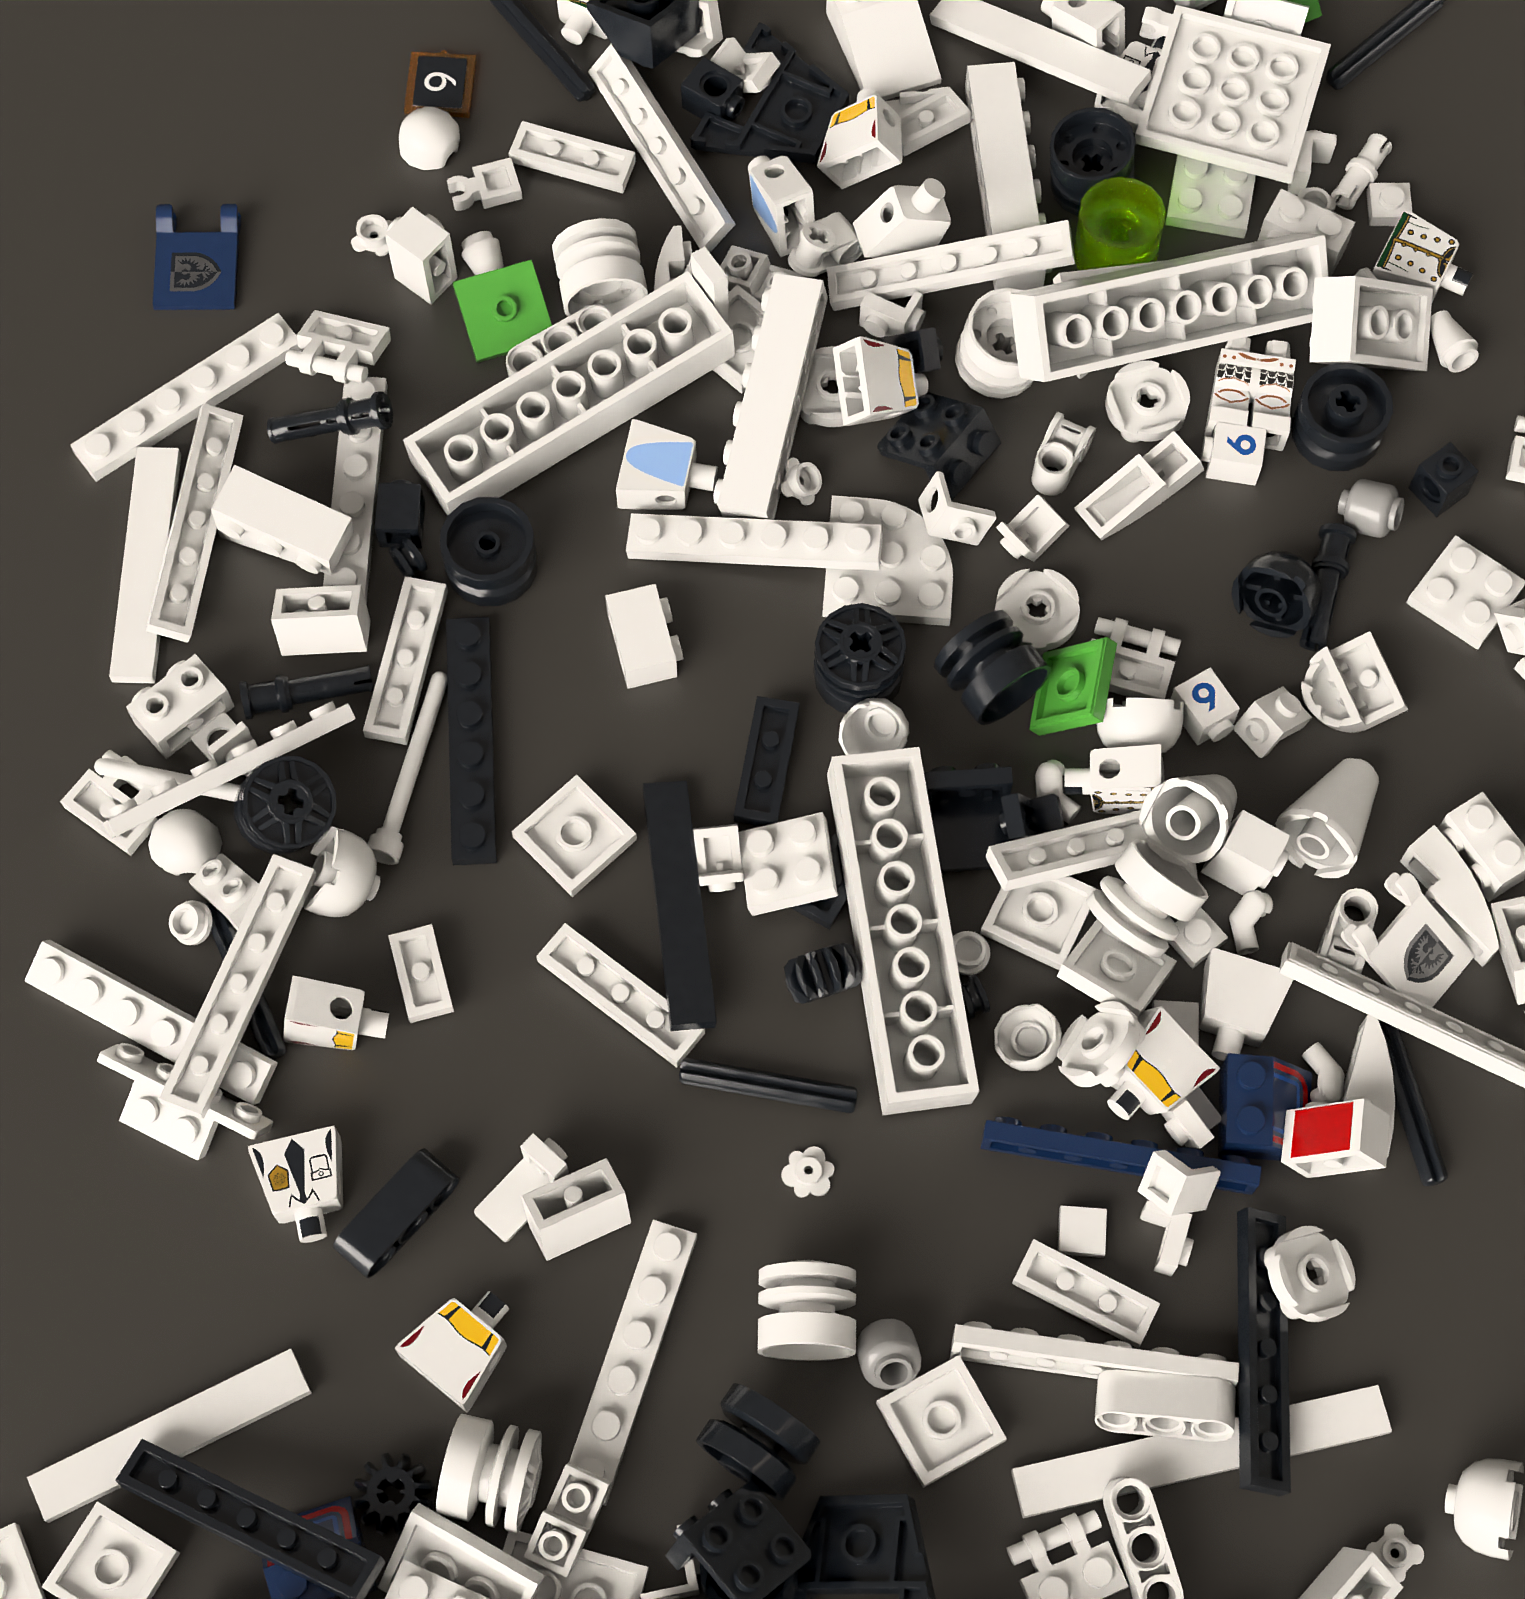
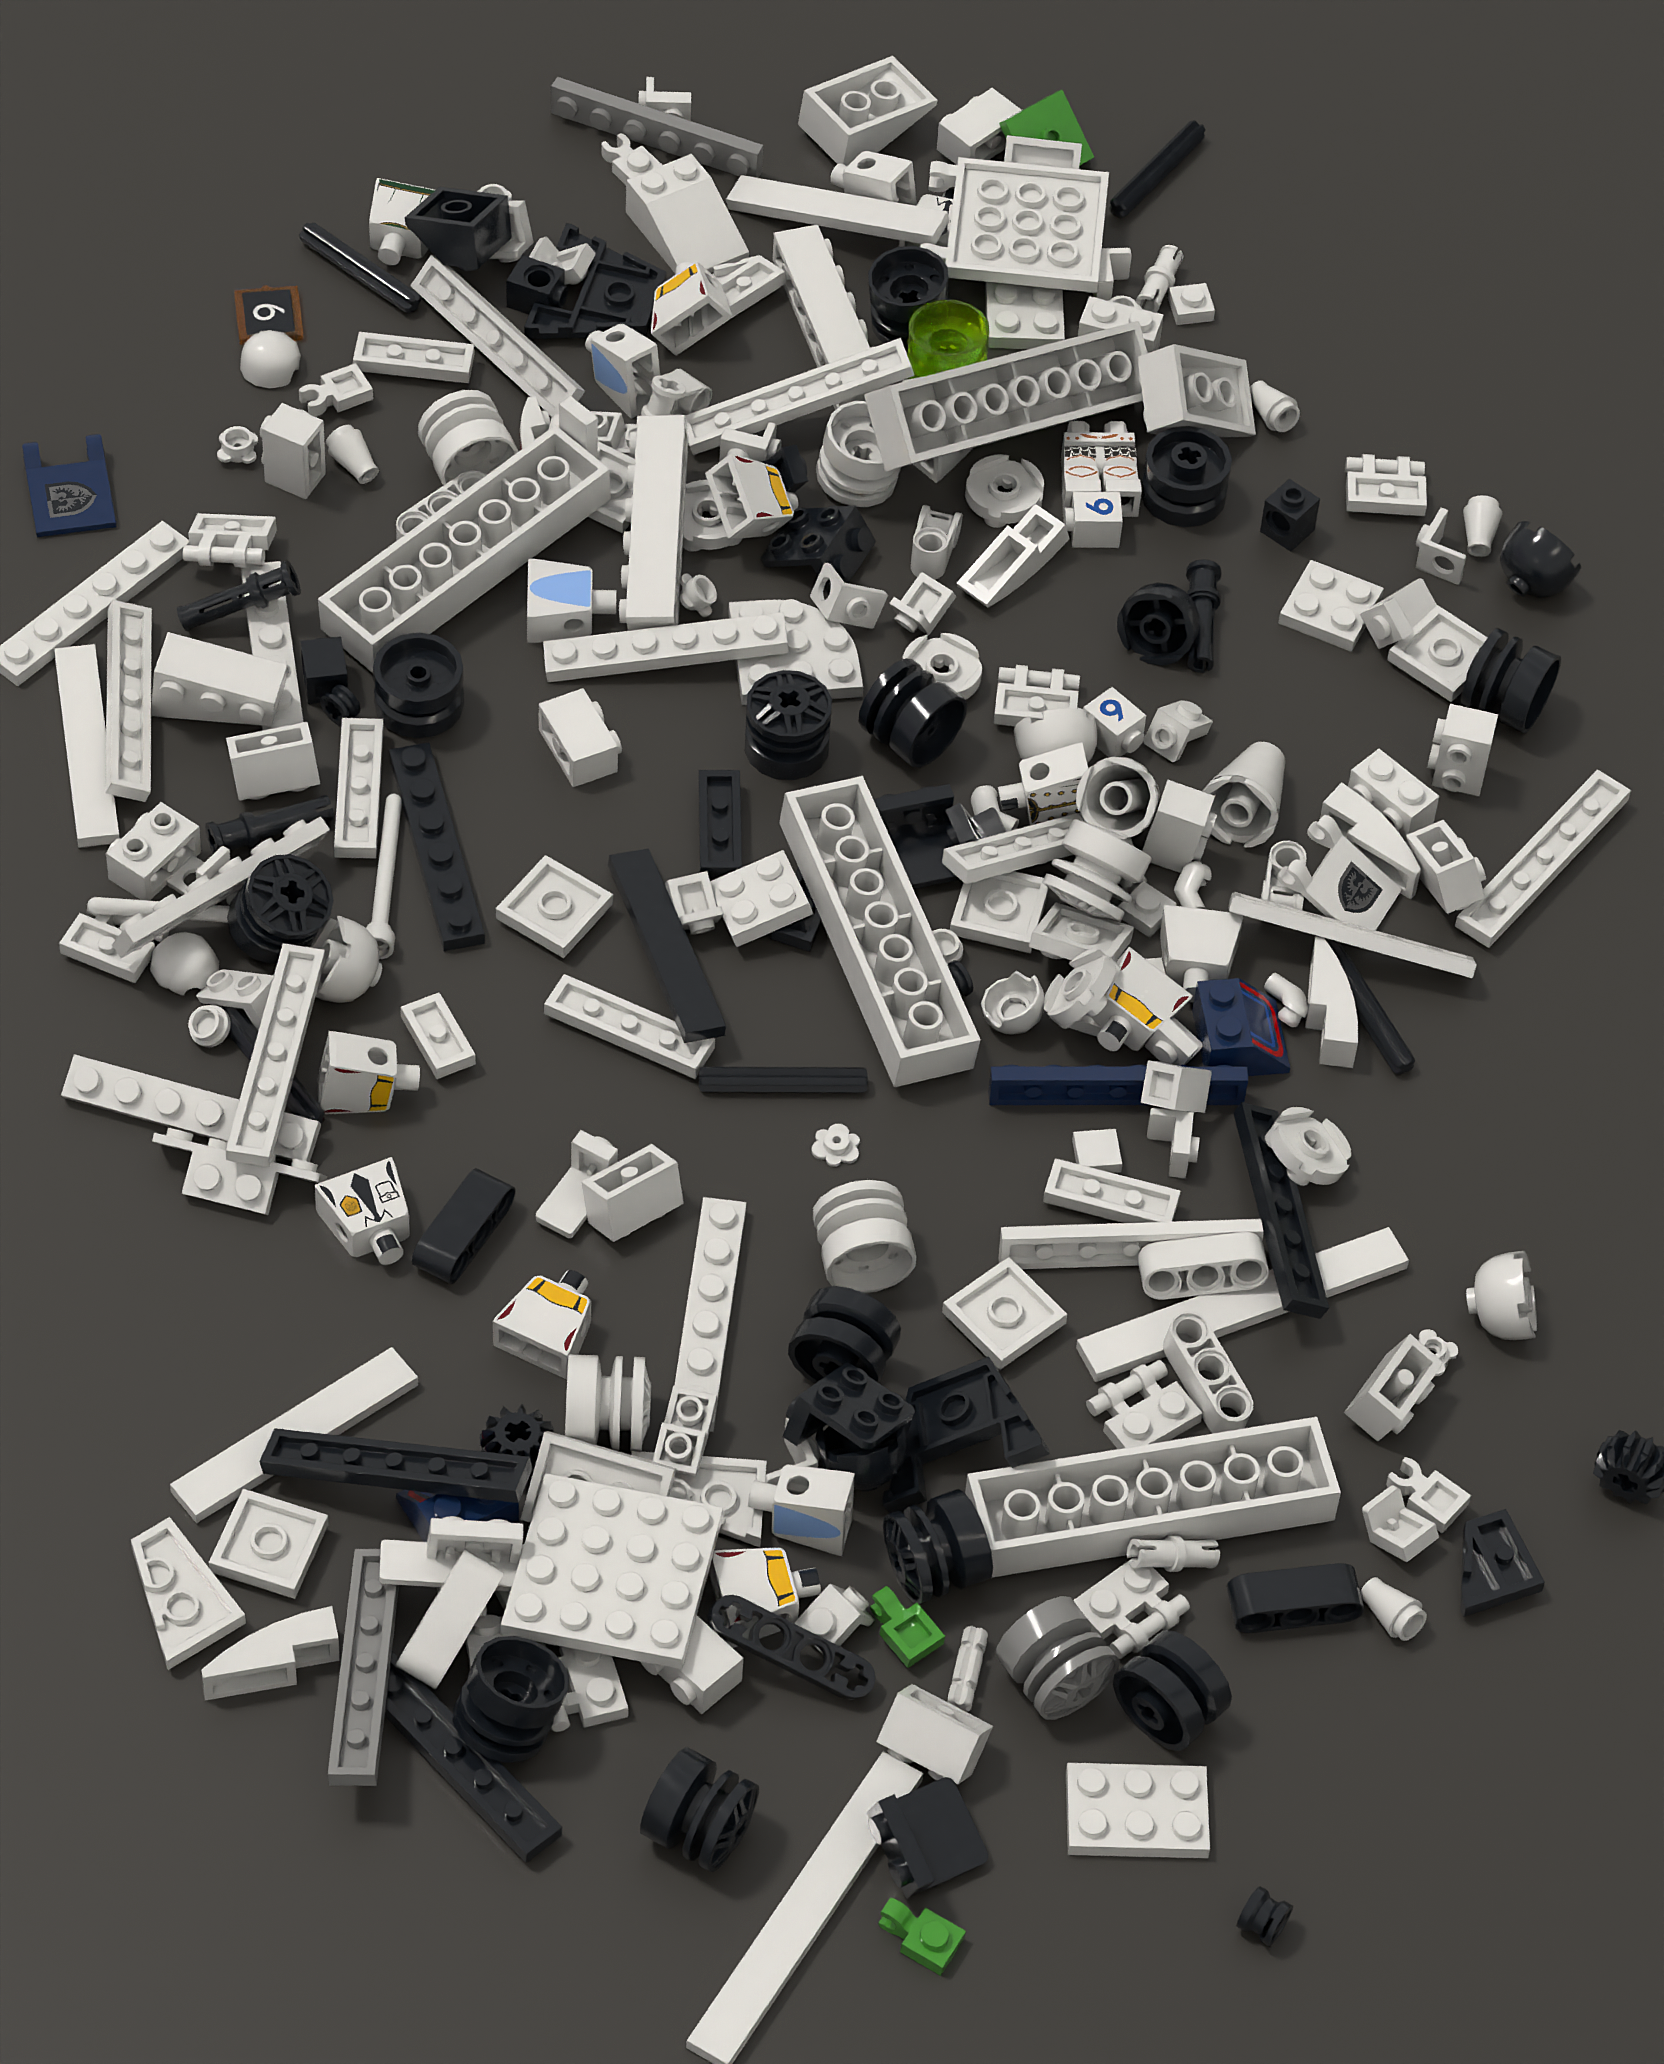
camera: 15 degrees left, 15 degrees down
(501, 309) = (377, 489): bright green plate -> none
(822, 973) = (814, 976): black gear -> none
(873, 727) = (811, 770): white hair -> none
(888, 1354) = (945, 1263): light grey head -> none
(904, 220) = (745, 361): white torso -> none
(1076, 687) = (992, 720): bright green plate -> none
(1336, 1137) = (1307, 1031): white brick -> none
(1352, 686) = (1244, 691): white slope -> none
(1371, 508) = (1230, 545): light grey head -> none
(1421, 257) = (1233, 335): white torso -> none

